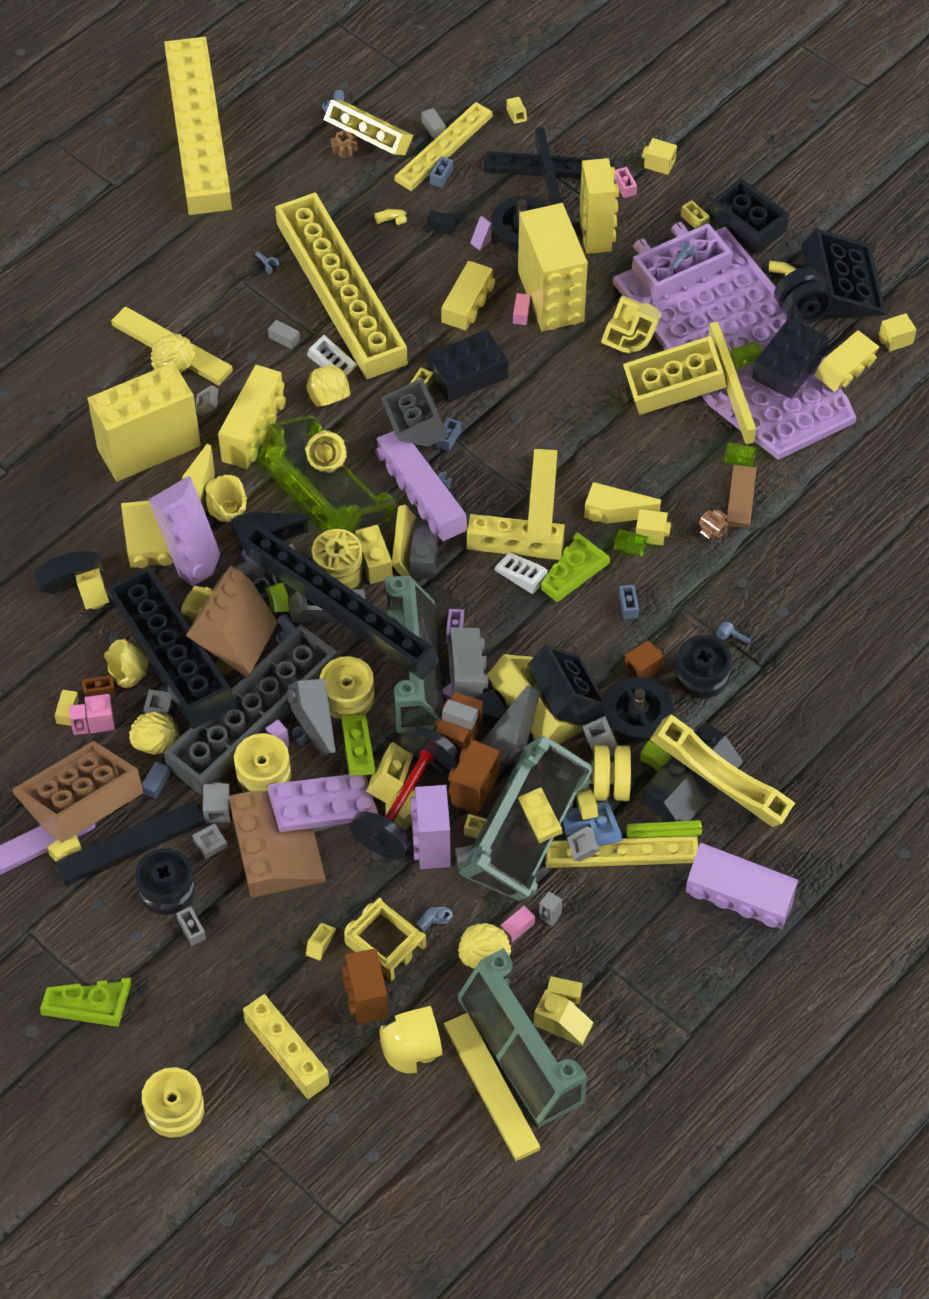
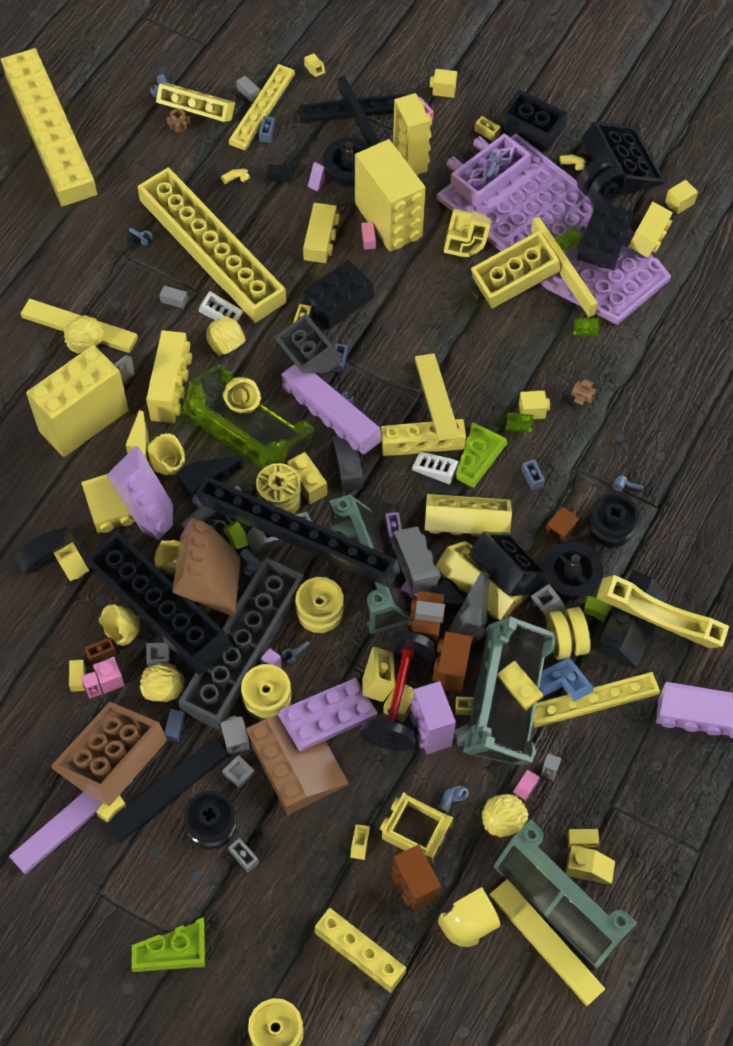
camera: 15 degrees left, 5 degrees up
(312, 710) = (296, 631): slope -> none
(357, 745) = (343, 654): lime plate -> none
(403, 540) = (329, 460): light yellow tile -> none
(537, 627) = (467, 515): none -> light yellow slope
(583, 844) = (562, 702): light grey plate -> none
(586, 803) = (555, 665): light yellow piece -> none
(616, 505) = (496, 392): light yellow slope -> none
(664, 829) = (623, 672): lime axle -> none
(741, 496) = (597, 362): medium nougat tile -> none

